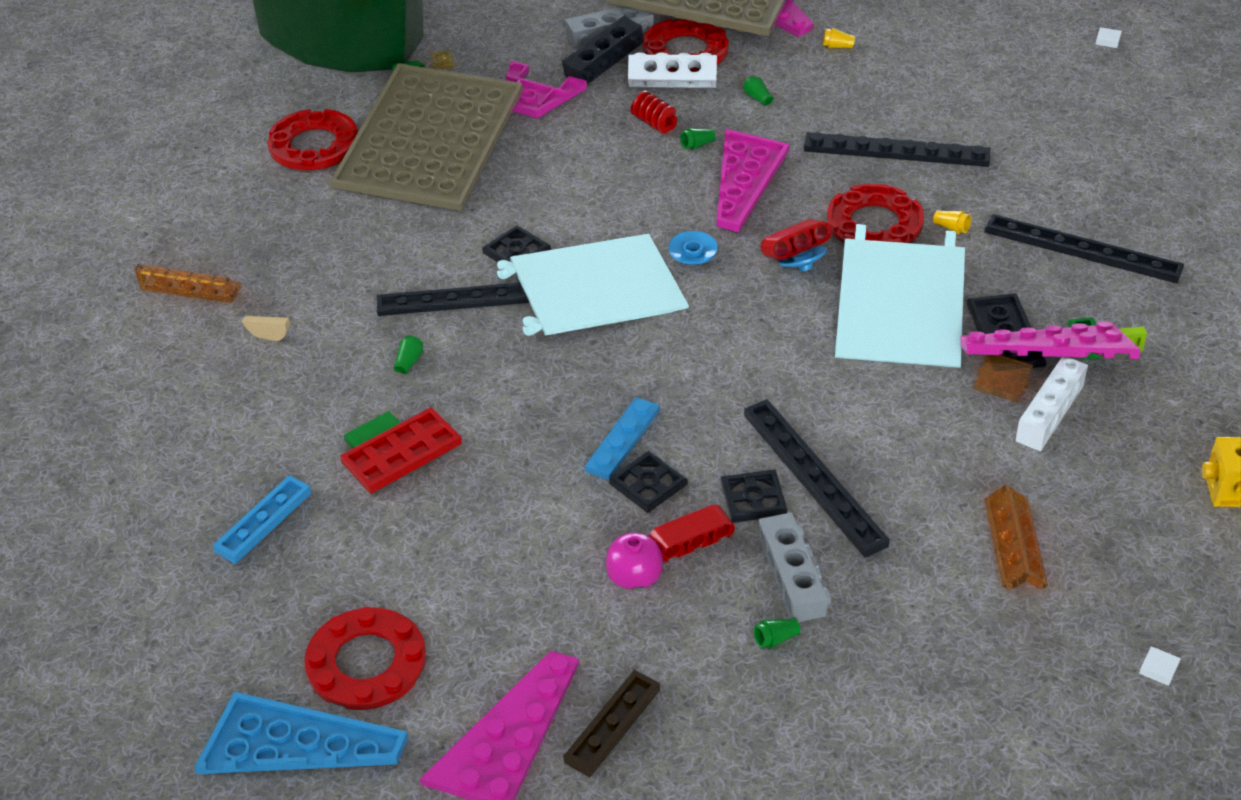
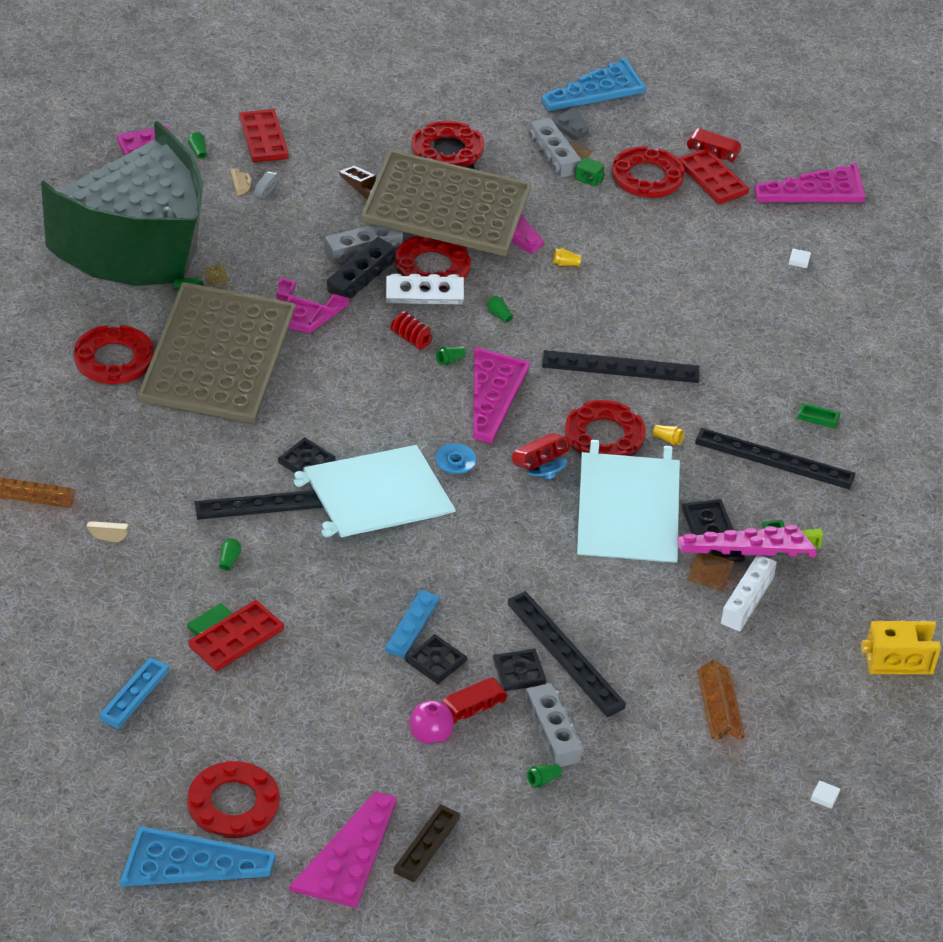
camera: 10 degrees left, 0 degrees up
(1136, 201) = (818, 415): none -> green tile

